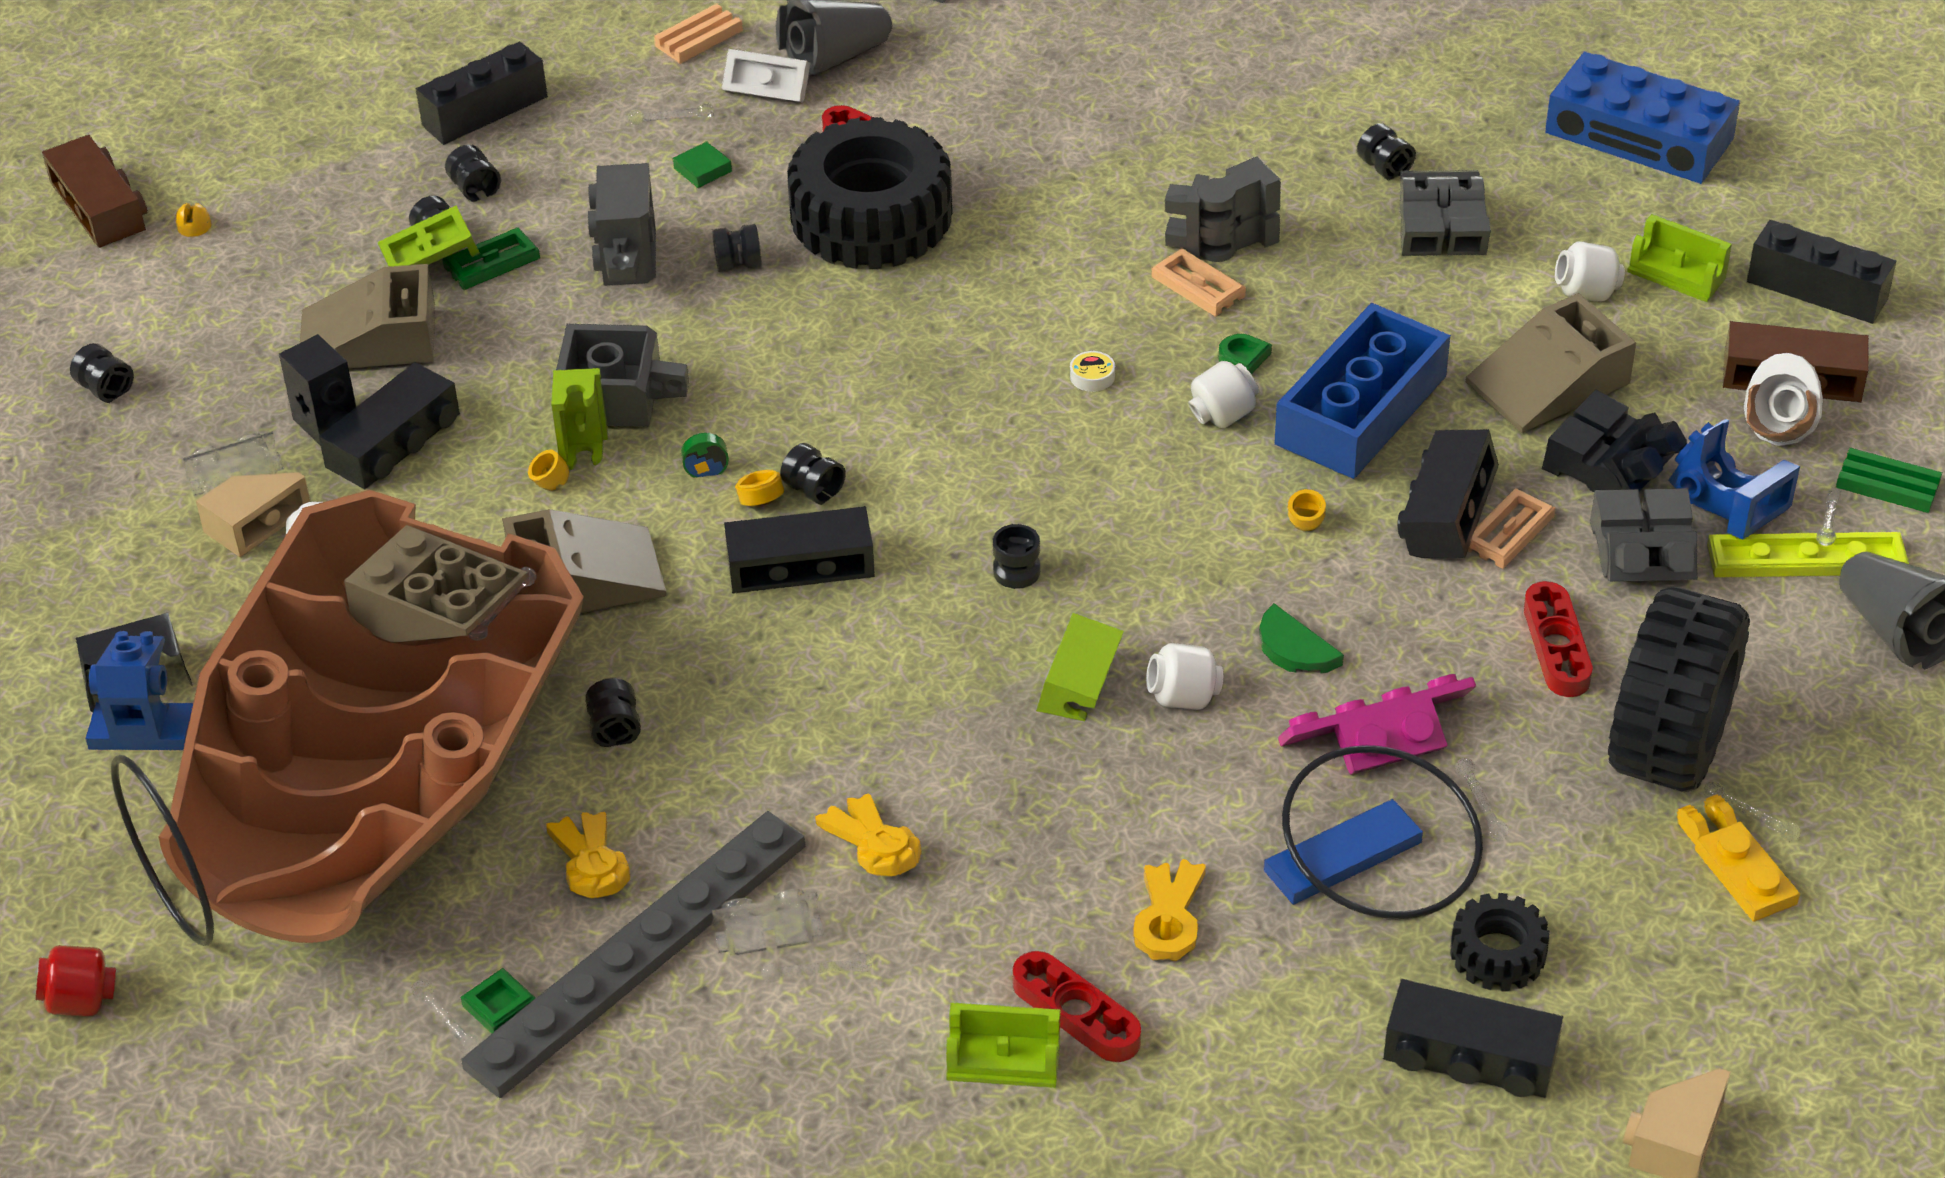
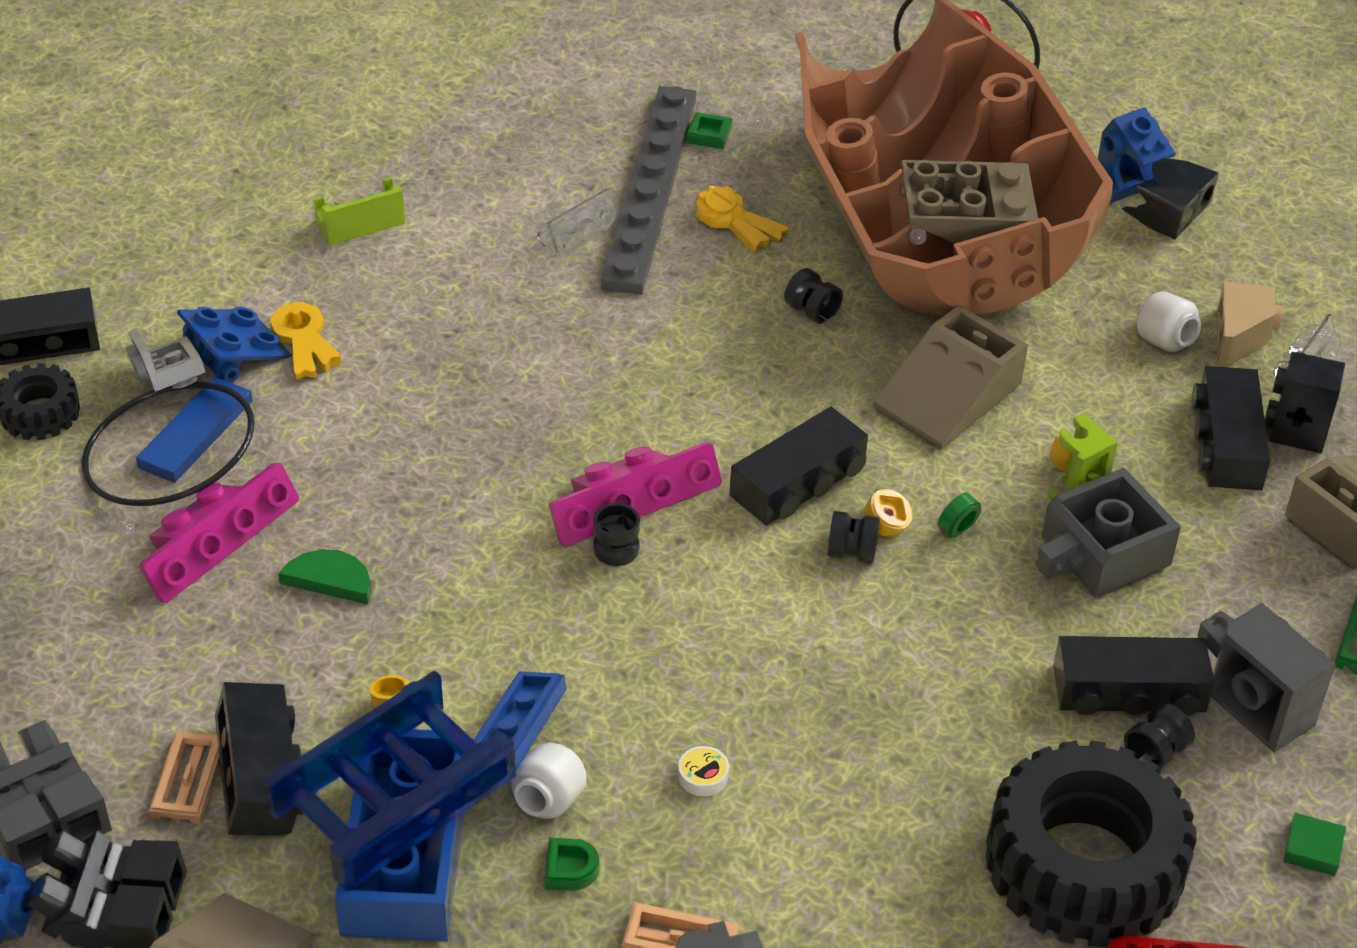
camera: 145 degrees right, 0 degrees up
(707, 289) = (1132, 674): none -> black brick
(881, 847) = (539, 294): yellow piece -> none
(965, 606) = (641, 480): none -> dark pink bracket
(1071, 986) = (293, 253): red beam -> none
(1079, 667) = (491, 465): lime hinge -> none
(1184, 676) = (400, 491): white head -> none
(1217, 437) = (524, 710): none -> blue tile
(1248, 935) = (229, 337): none -> blue hinge
(1342, 907) = (167, 365): none -> light grey bracket
(1365, 335) = (401, 821): none -> clear blue fence
(1561, 623) = (92, 657): red beam -> none

